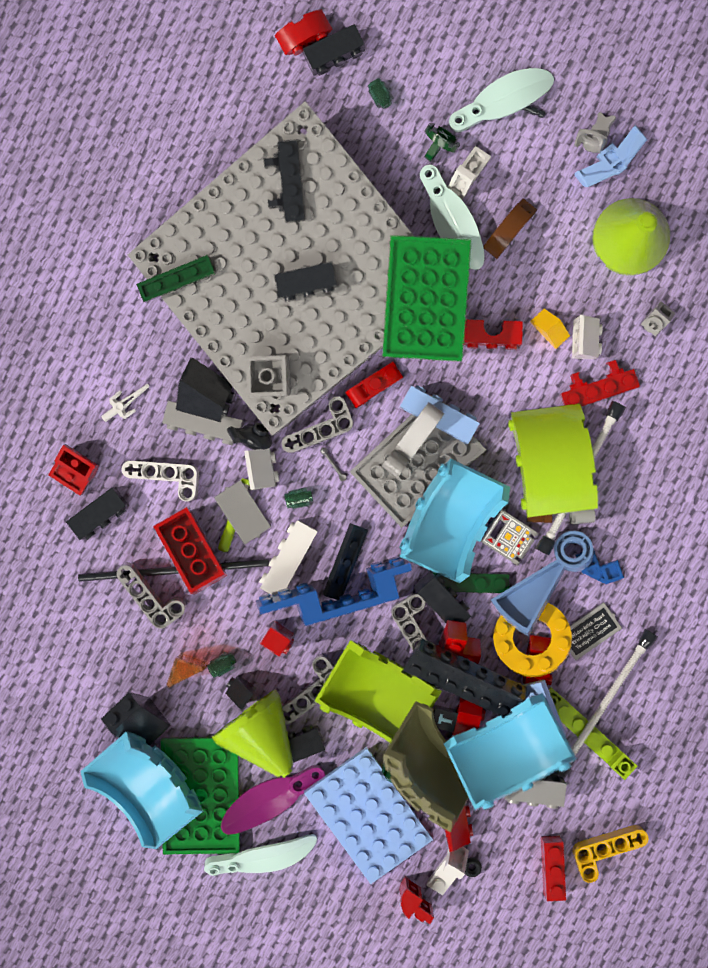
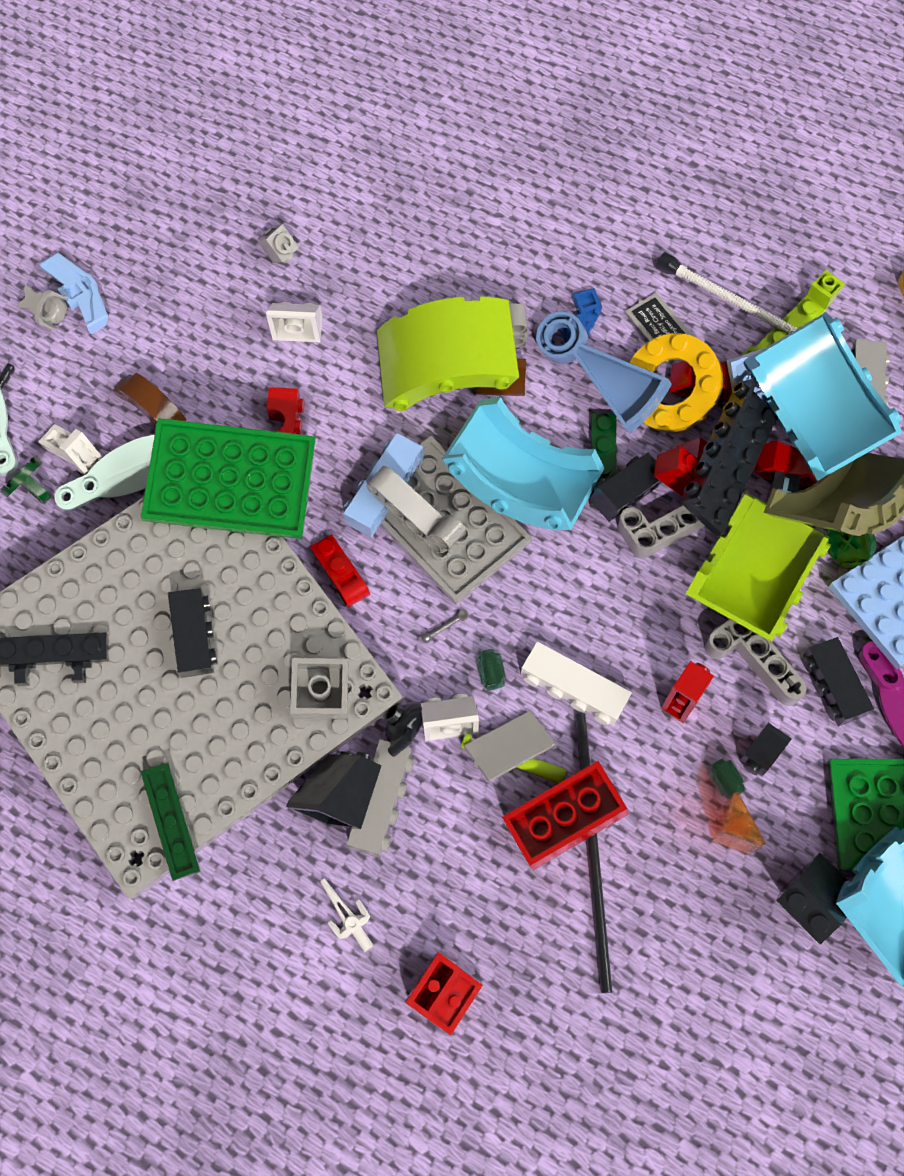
camera: 90 degrees left, 20 degrees down
(98, 514) = (511, 957): black brick -> none
(148, 593) = (628, 884): light grey beam -> none
(160, 474) = (454, 861): white beam -> none
(260, 736) = (823, 716): lime cone -> none
(310, 611) = (642, 643): blue bracket -> none
(316, 429) = (399, 643): light grey beam -> none
(345, 561) = (578, 610): black plate -> none
(512, 539) = (547, 408): light grey container -> none
(550, 327) = (278, 362): yellow slope -> none
(613, 414) = (551, 363): hose -> none
(614, 384) = (364, 324): red hinge -> none
(631, 236) = (173, 270): lime cone -> none

